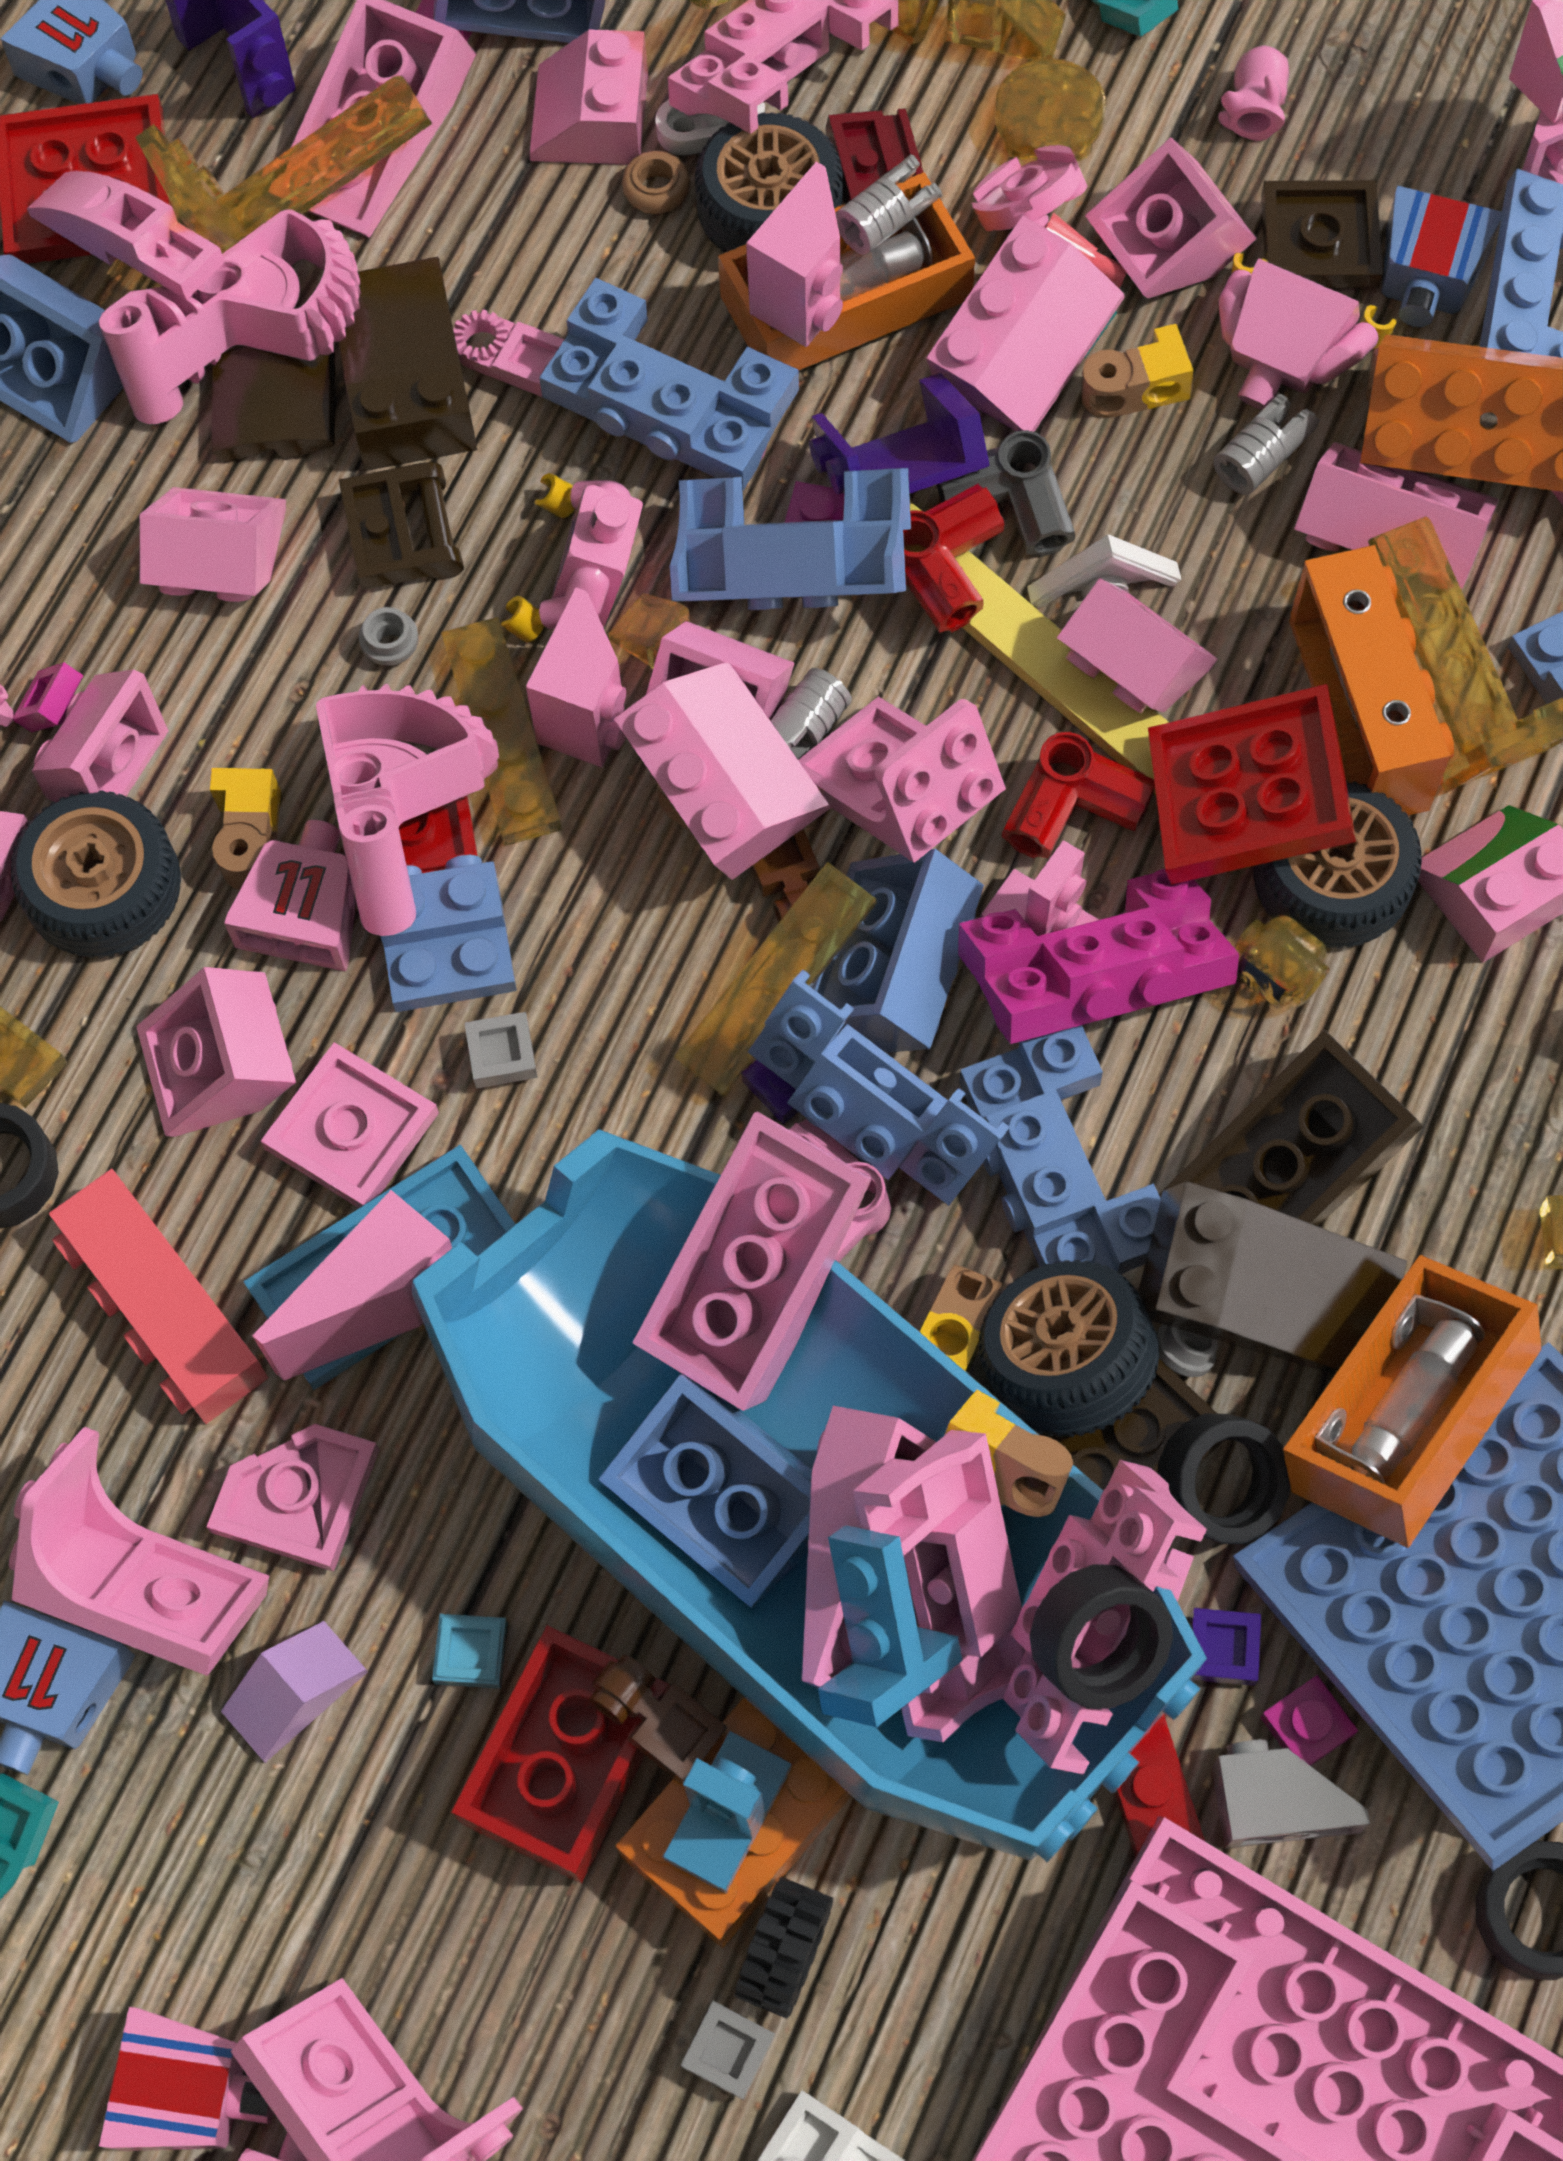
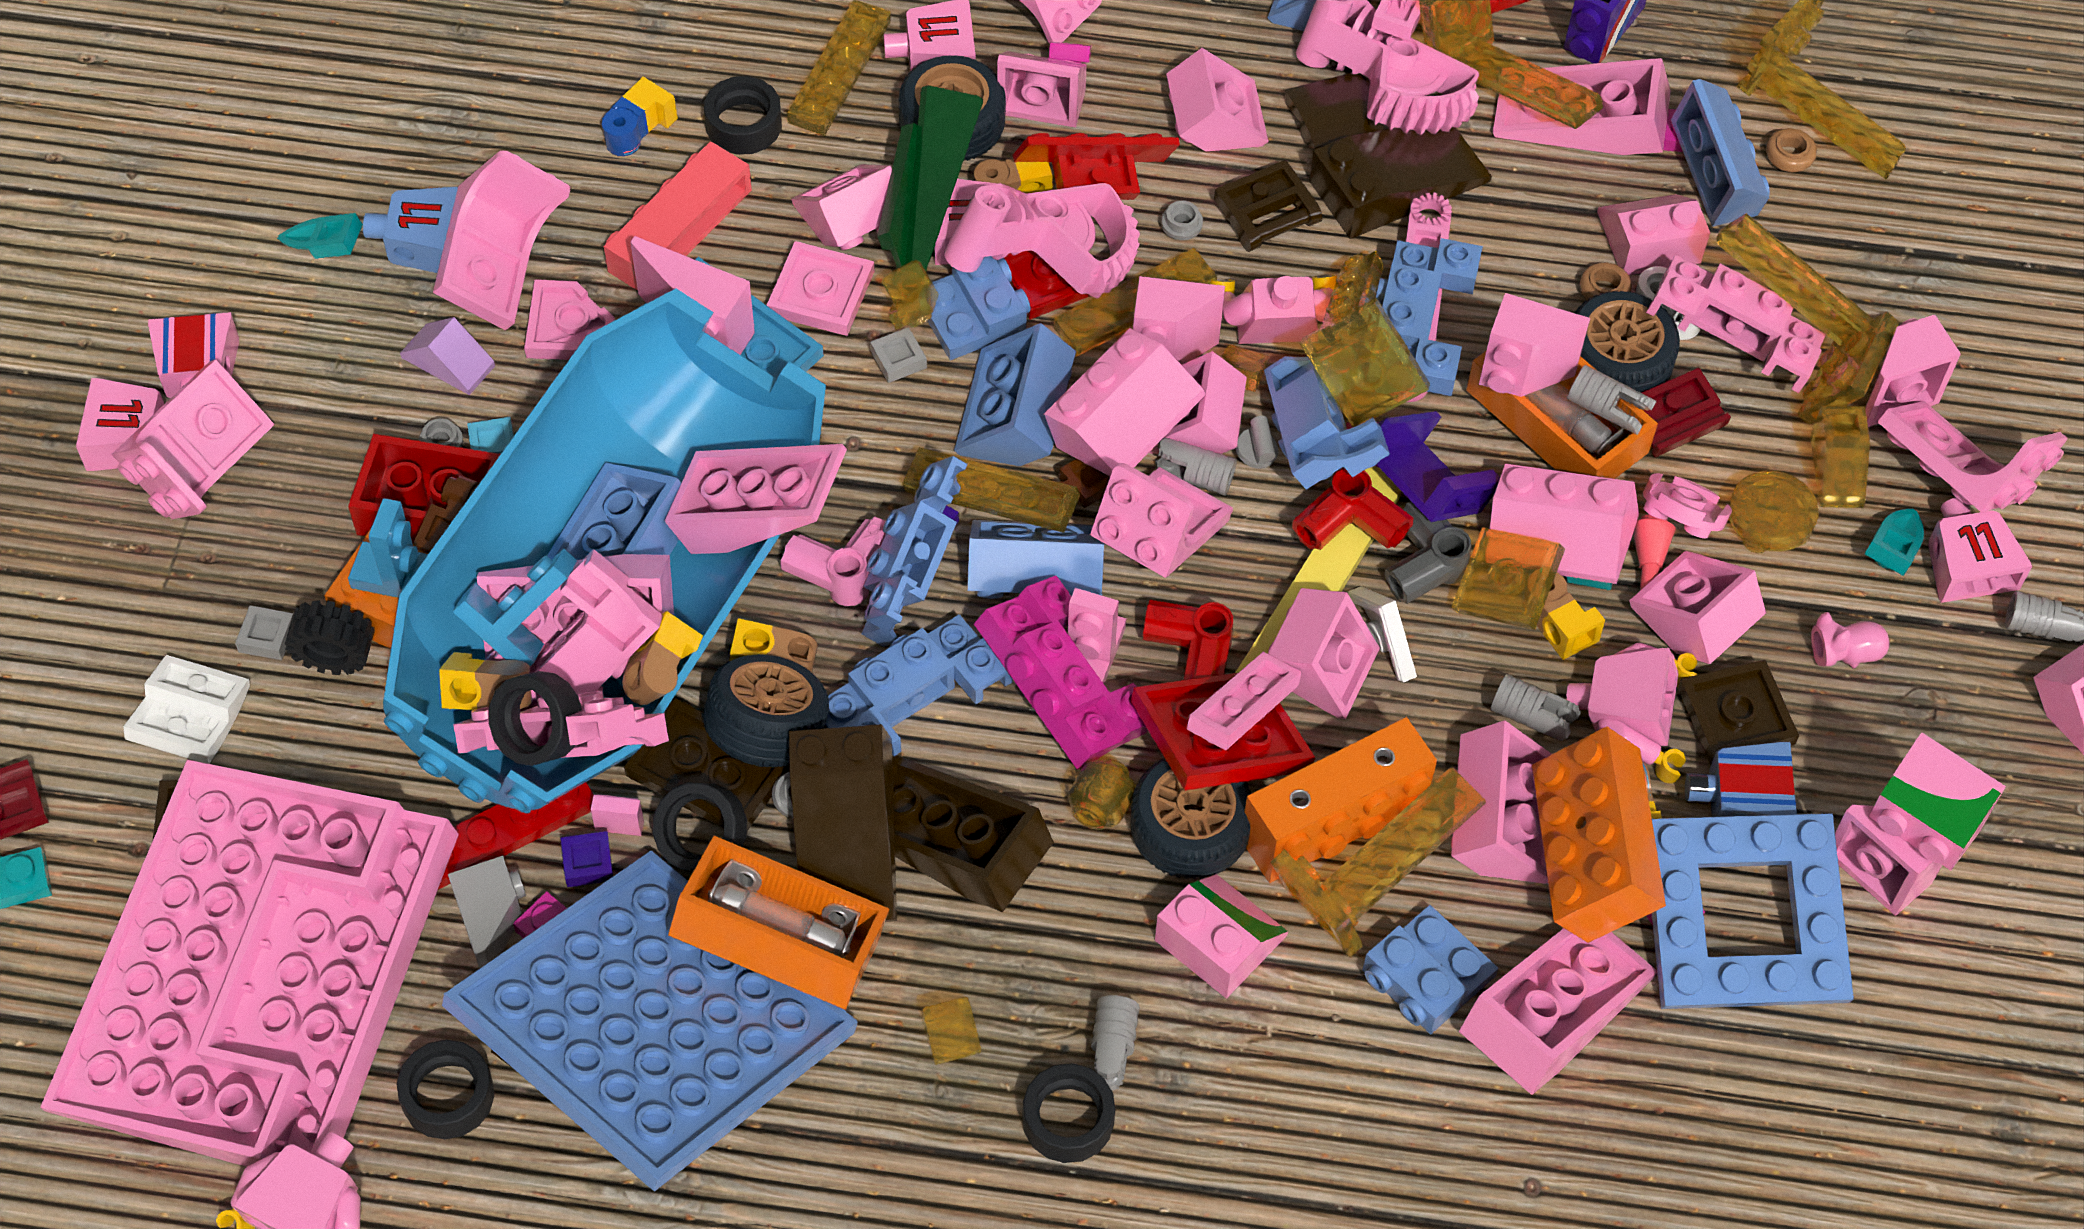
camera: 70 degrees right, 10 degrees down
(238, 926) = (926, 173): none -> dark green wedge
(279, 714) = (1097, 160): none -> red bracket
(426, 1002) = (912, 295): none -> clear yellow bracket
(439, 1707) = (442, 429): none -> light grey plate
(624, 916) = (1010, 394): none -> medium blue slope
(740, 457) = (1361, 349): none -> clear yellow bracket
(791, 638) = (1256, 444): none -> light grey plate
(977, 1713) = (472, 682): none -> leg
(1088, 408) = (1508, 578): none -> clear yellow plate
(1231, 740) = (1244, 700): none -> bright pink plate

